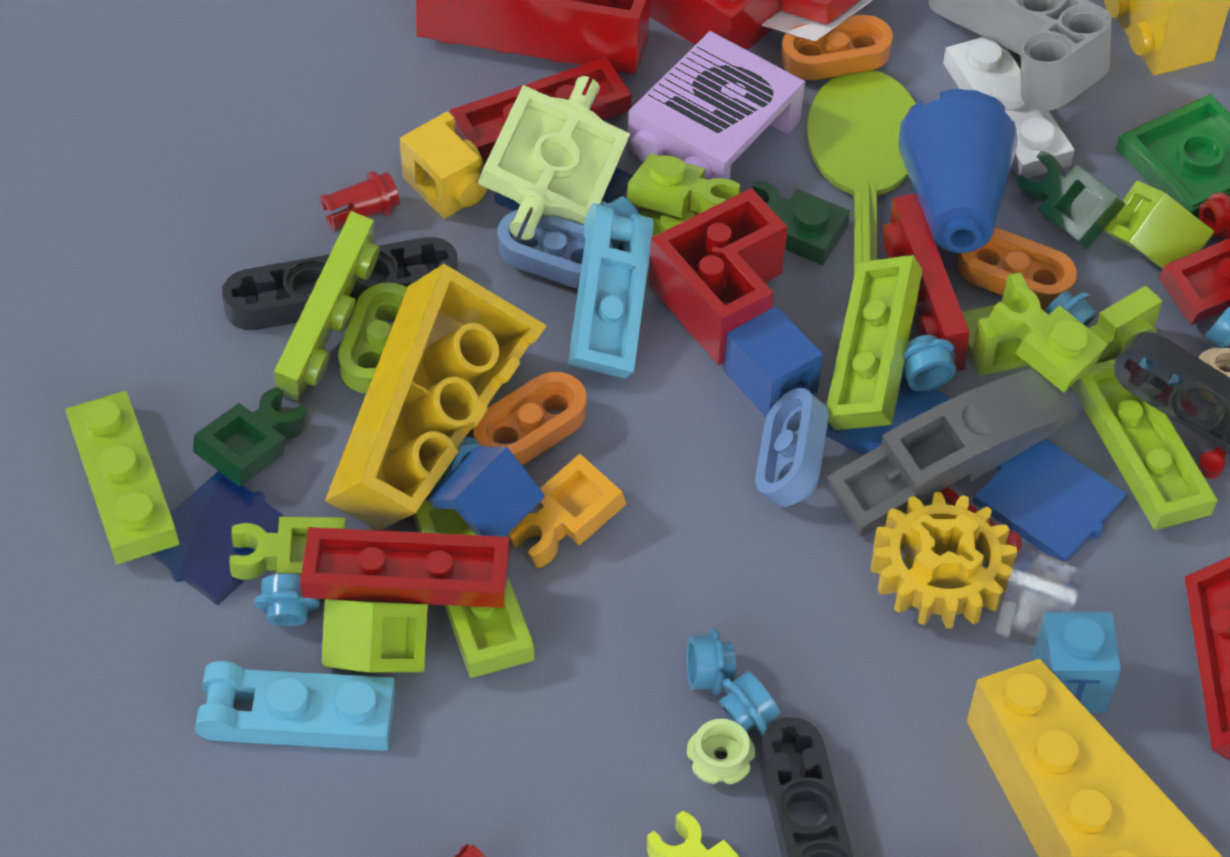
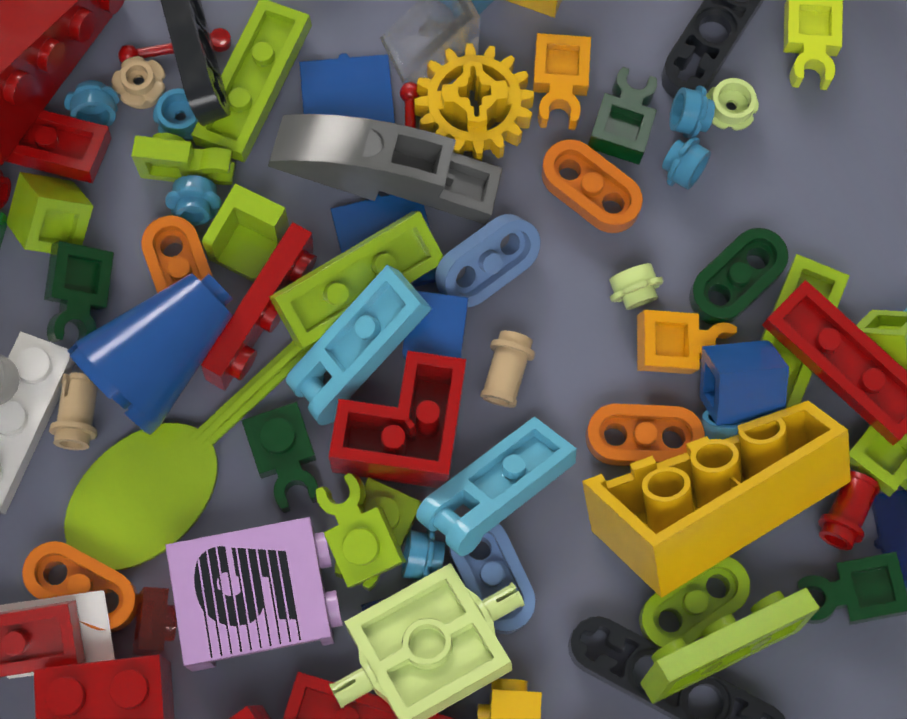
camera: 140 degrees left, 20 degrees up
(304, 476) = (848, 512): none -> red pin
(569, 604) = (736, 278): none -> dark green plate
(650, 526) = (635, 286): none -> yellowish green plate
(697, 399) = (507, 368): none -> tan pin
(761, 42) = (154, 621): none -> clear red plate
(770, 575) = (596, 184): none -> orange plate
(801, 650) = (624, 120): none -> plate
(819, 295) = (357, 343): none -> medium azure plate
(898, 654) = (562, 73): none -> light orange plate
(928, 363) = (334, 235): dark azure plate -> none
(1051, 343) = (250, 160): lime plate -> none

